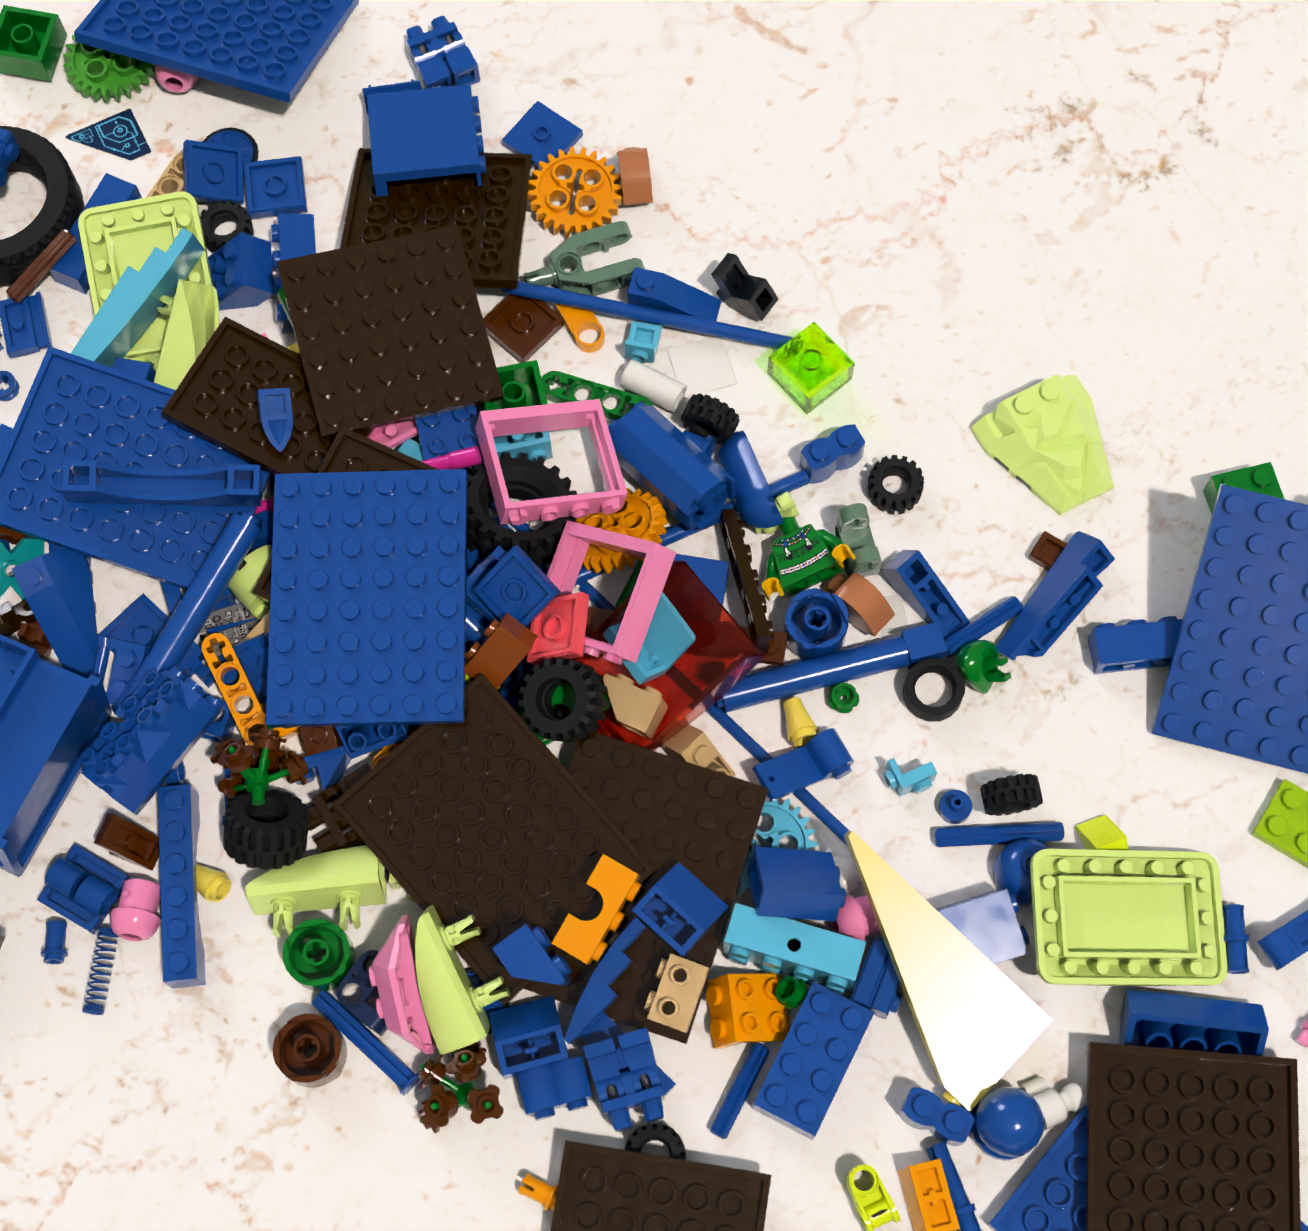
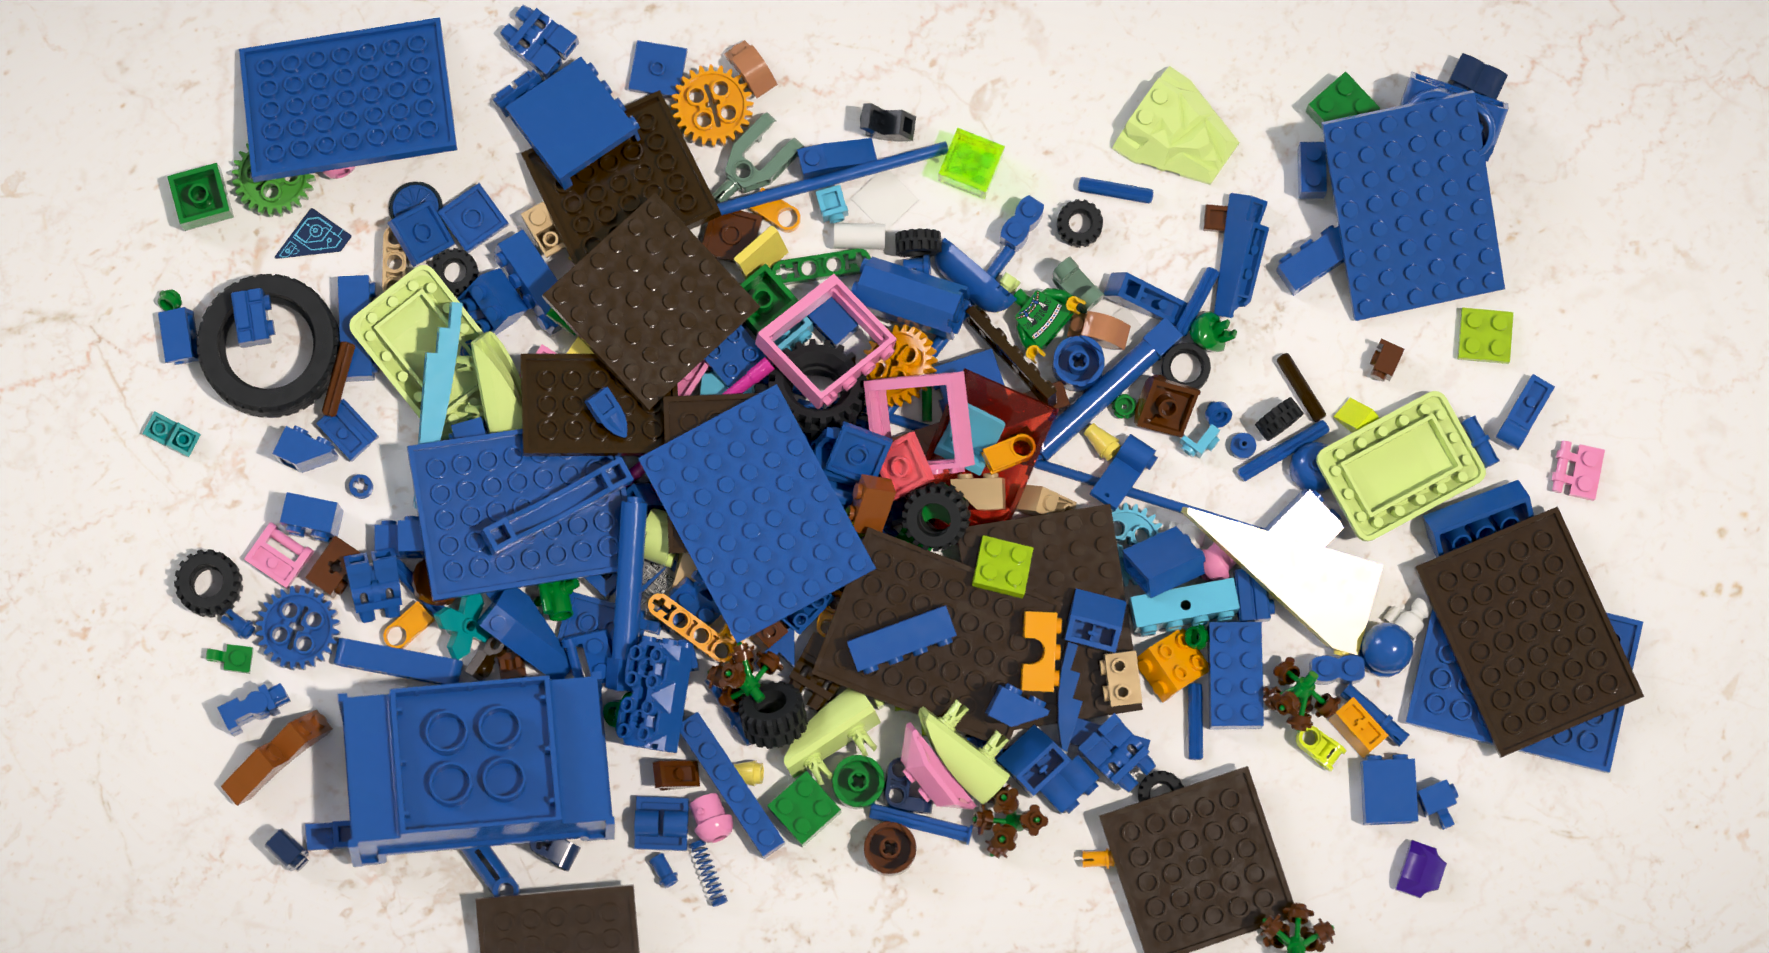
camera: 30 degrees left, 10 degrees up
(119, 590) = (556, 599): none -> green pin
(243, 955) = (804, 809): none -> green brick
(331, 222) = (543, 229): none -> tan slope
(448, 814) = (902, 638): none -> blue brick
(544, 343) = (766, 249): none -> light yellow tile
(576, 456) = (833, 322): none -> blue brick
(607, 793) = (1002, 566): none -> lime plate
(675, 674) = (1002, 455): none -> light orange piece
(873, 1124) = (1299, 697): none -> reddish brown plant
(889, 717) = (1165, 406): none -> reddish brown slope
(944, 756) = (1218, 414): none -> blue tile
(952, 470) = (1115, 190): none -> blue axle
(1054, 775) = (1301, 387): none -> dark brown axle
(1167, 792) = (1385, 360): none -> reddish brown brick
(1181, 550) = (1312, 170): none -> blue brick

